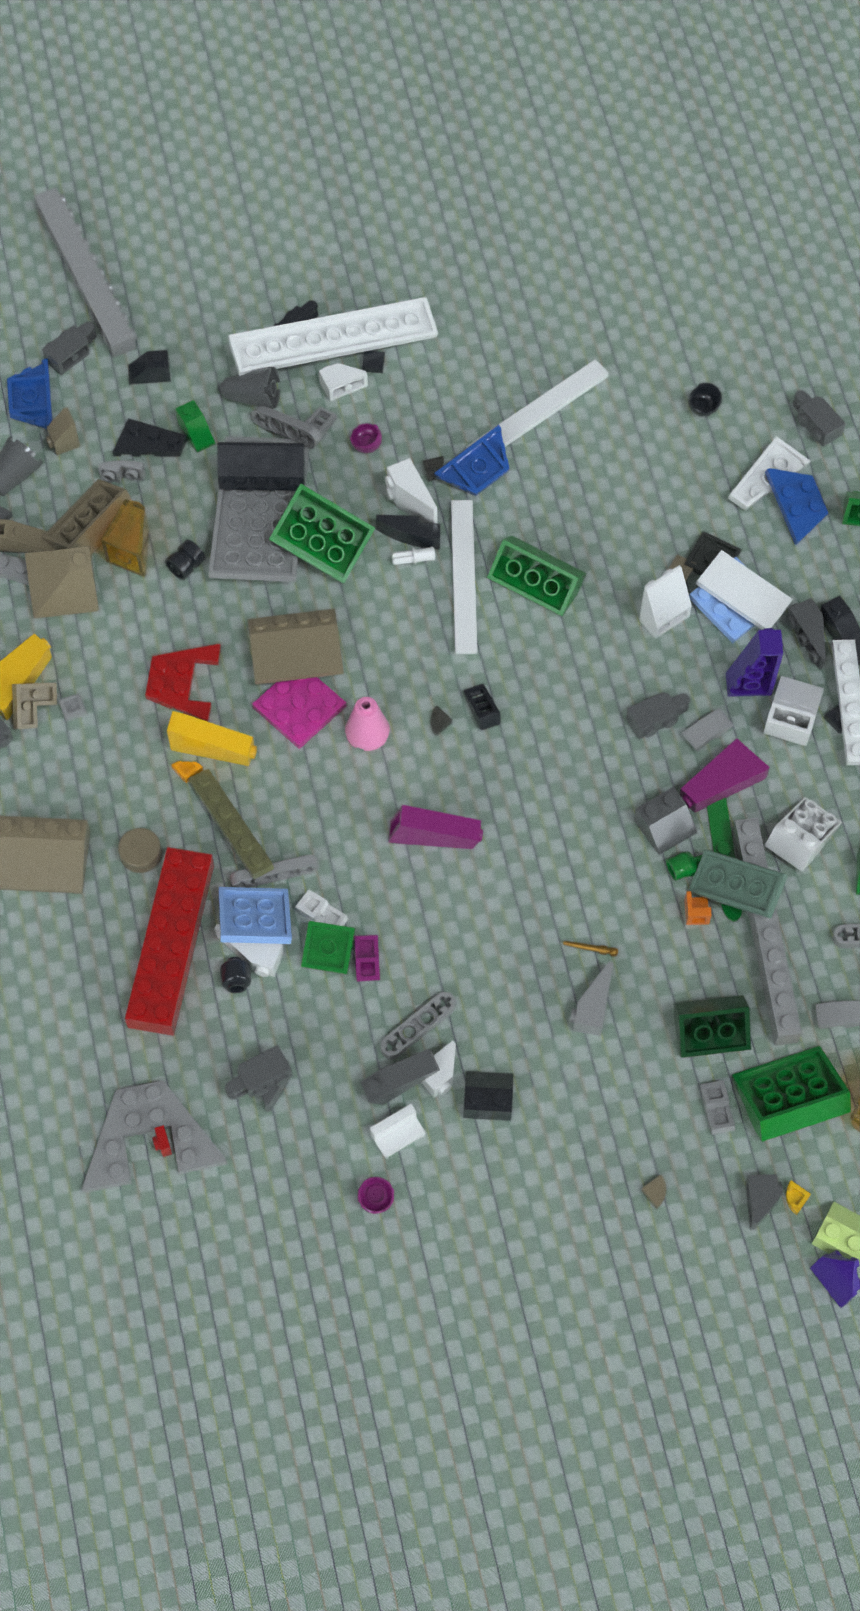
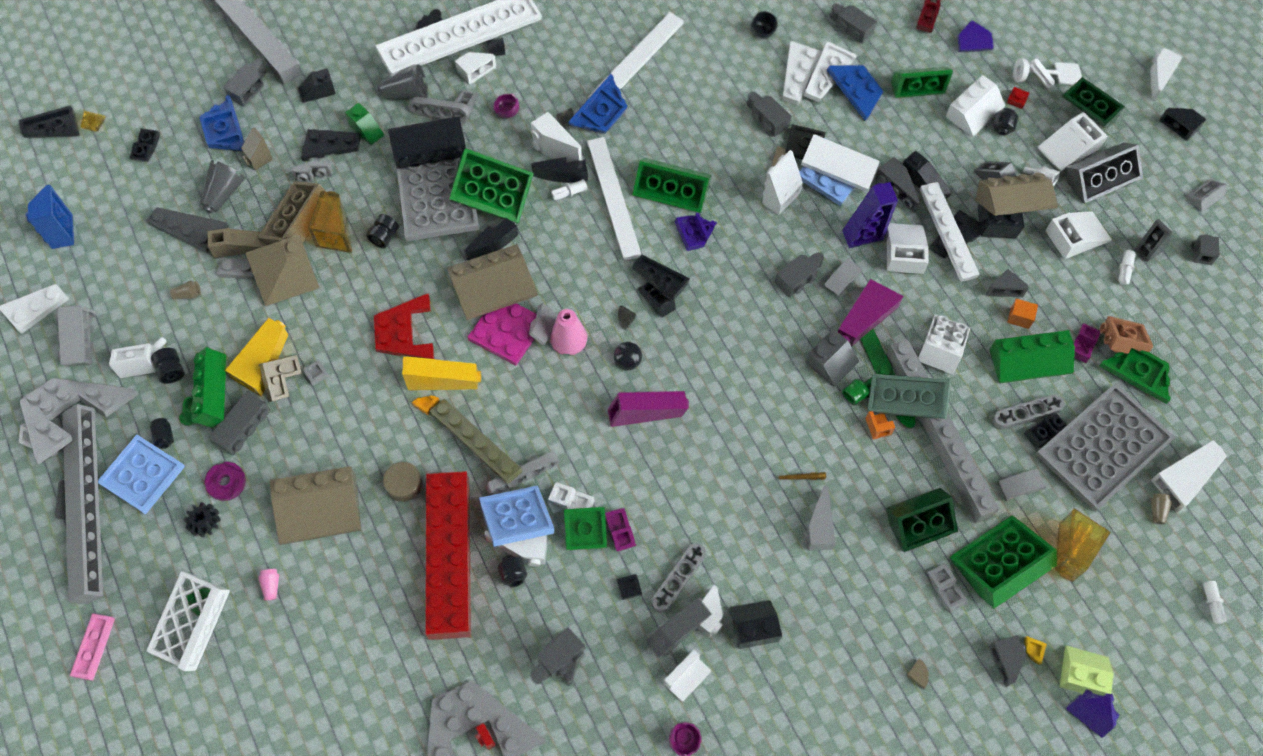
camera: 15 degrees left, 0 degrees up
(308, 597) = (492, 239): none -> black slope
(340, 708) = (543, 324): none -> light grey slope
(360, 1022) = (629, 587): none -> black tile
(429, 766) = (627, 355): none -> black hair
(492, 683) = (661, 277): none -> black wing
(548, 636) = (694, 230): none -> dark purple slope
(678, 512) = (768, 113): none -> dark grey hinge
(732, 465) = (799, 70): none -> white wing

